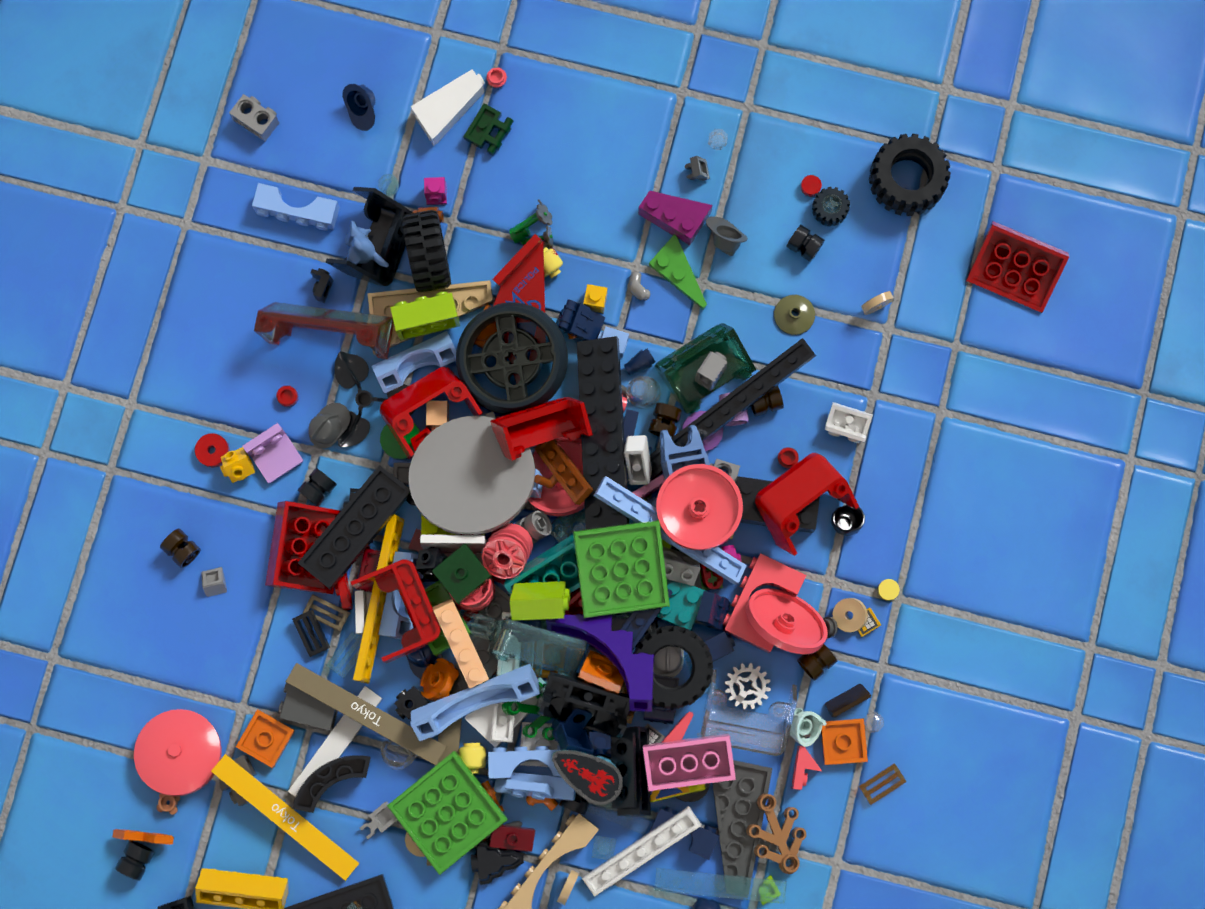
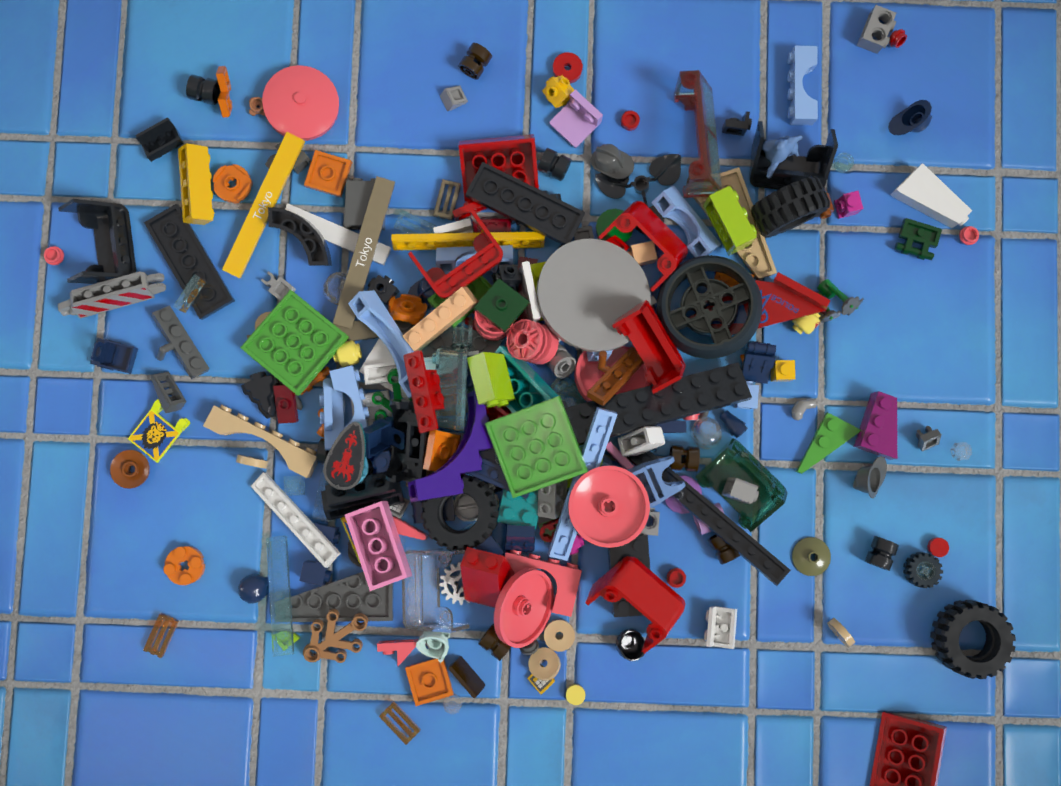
camera: 75 degrees right, 5 degrees up
(237, 849) = (233, 194): none -> orange plate
(269, 98) = (897, 38): none -> red plate
(318, 629) = (427, 193): black tile -> none
(536, 674) = (424, 391): none -> red bracket
(745, 654) = (484, 576): none -> red slope
(827, 584) = (563, 643): none -> tan piece

